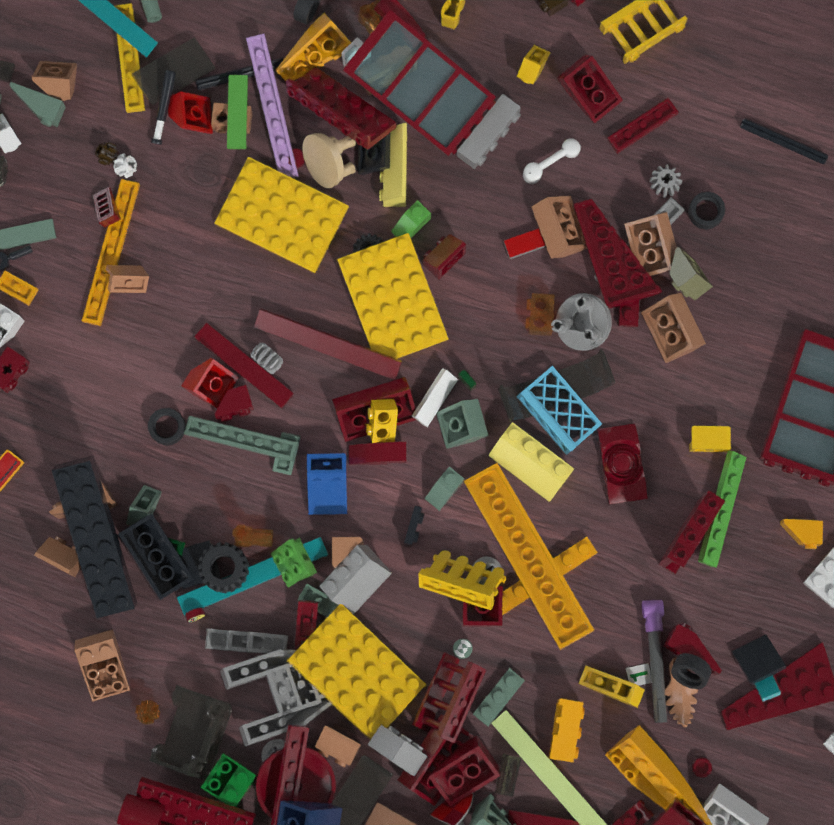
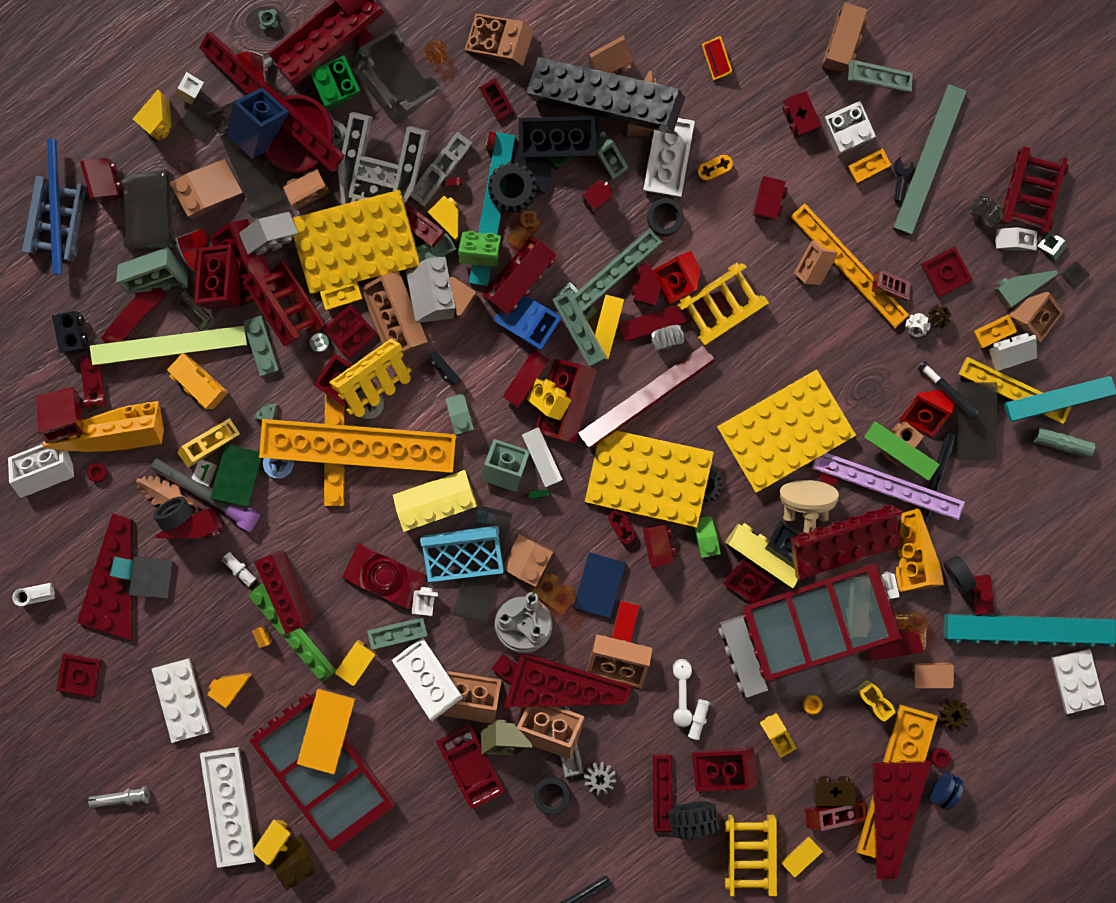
camera: 125 degrees right, 10 degrees up
(66, 172) = (946, 272): none -> dark red tile
(91, 103) = (994, 331): none -> light orange plate
(95, 416) = (712, 164): none -> light orange beam
(96, 350) = (769, 198): none -> dark red brick
(98, 76) = (1012, 353): none -> white slope
(118, 453) = (669, 159): none -> white plate
(145, 639) = (483, 87): none -> dark red slope
(177, 779) = (364, 38): none -> dark red tile
(185, 491) = (597, 196): none -> dark red brick
(209, 313) = (739, 313): none -> yellow fence
(250, 622) = (454, 182): none -> dark red tile
(283, 609) = (447, 216): none -> yellow slope
(290, 414) = (608, 322): none -> yellow slope
(294, 514) = (519, 275): none -> dark red slope
(306, 434) = (579, 328): none -> sand green tile
(395, 601) = (393, 311): none -> nougat slope
(410, 655) = (341, 295): none -> yellow plate
(423, 164) = (749, 580): none -> dark red plate
(435, 629) = (349, 331): none -> dark red slope
(445, 294) = (617, 528): none -> dark red beam
(490, 54) = (812, 704): none -> light orange tile
(508, 283) = (599, 584): none -> dark blue tile
(528, 353) = (527, 560): none -> nougat slope
(552, 654) = (267, 412): none -> sand green tile
(563, 134) = (699, 719): none -> white pin
(592, 606) = (272, 469): none -> light blue gear
(621, 416) = (423, 601): none -> white bracket
(623, 642) = (236, 476): none -> dark green tile
(647, 84) = (693, 820): none -> black tyre
(661, 421) = (397, 633): none -> sand green plate
(682, 369) = (427, 679): none -> white tile
(700, 589) = (239, 569): none -> white pin
(729, 290) = (469, 766): none -> dark red slope
(743, 532) = (262, 636): none -> light orange slope
(783, 423) = (326, 731): none -> light orange tile

